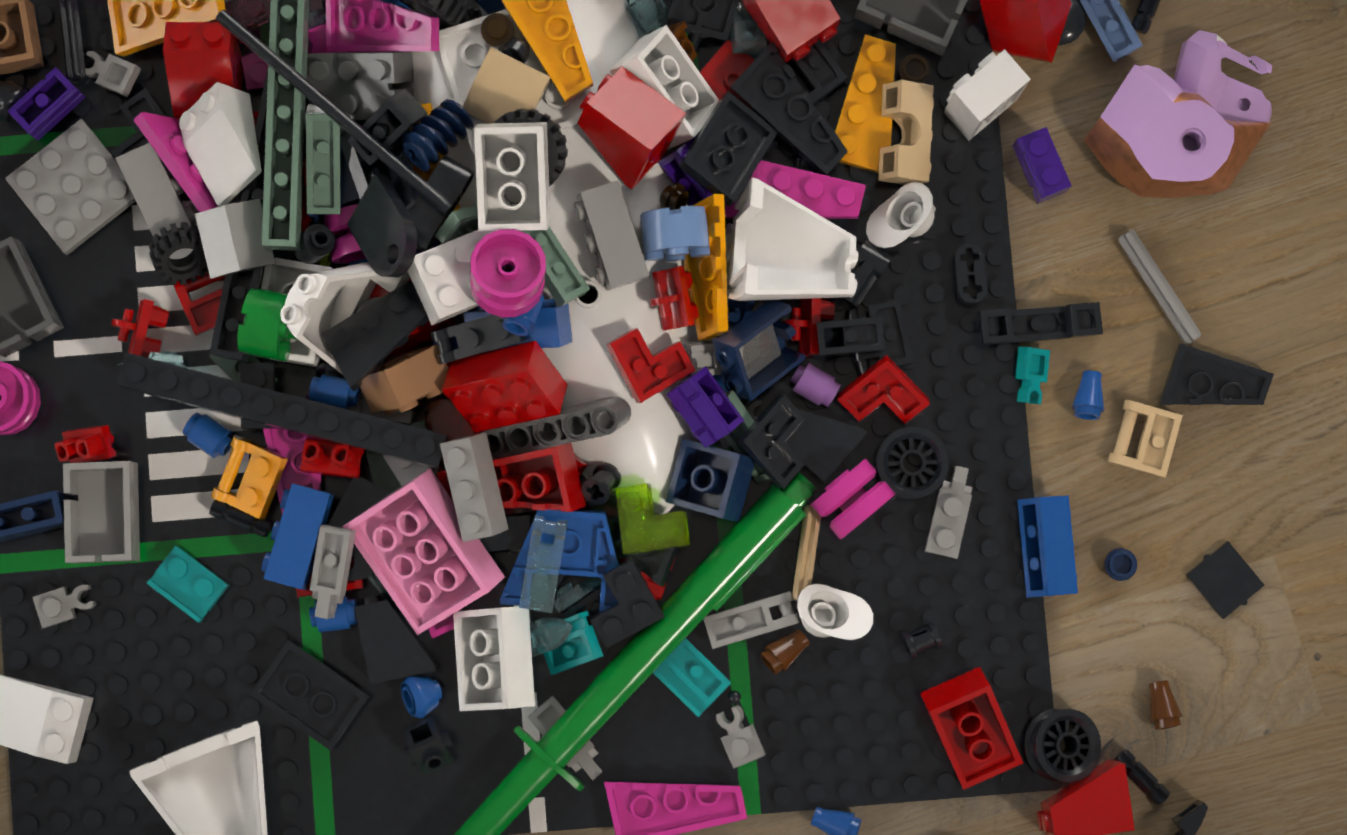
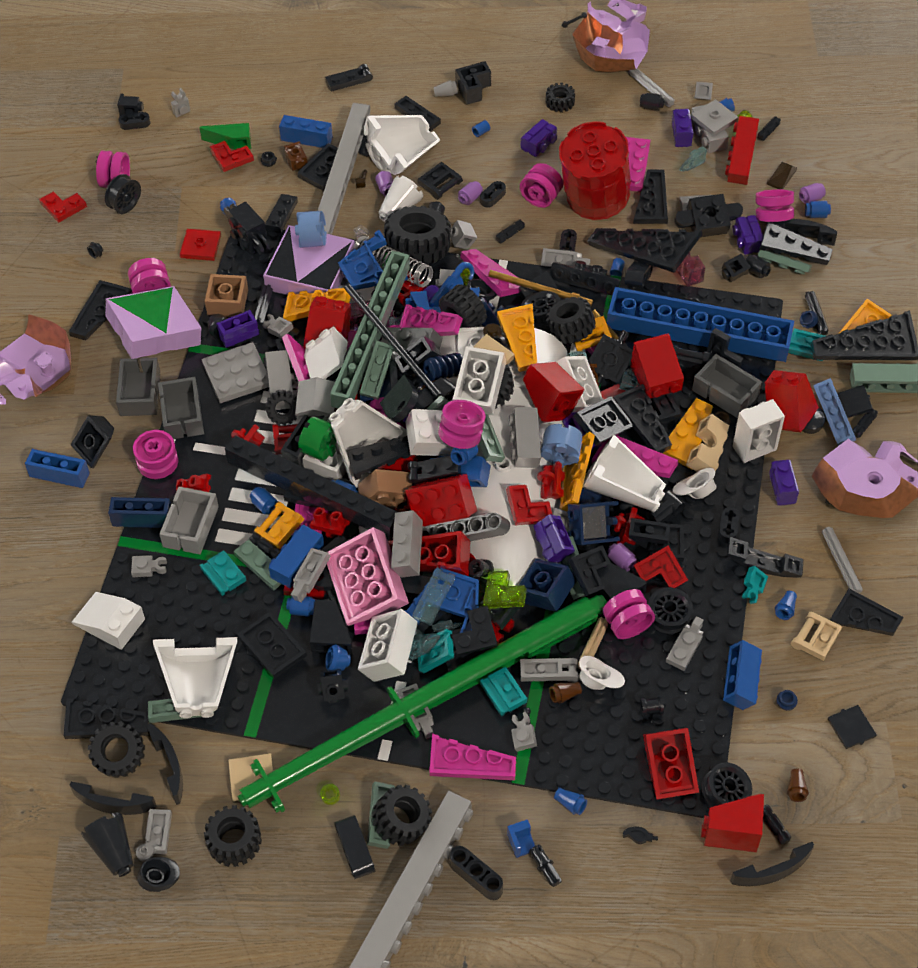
camera: 15 degrees right, 30 degrees down
(234, 548) = (256, 562): none -> sand green plate

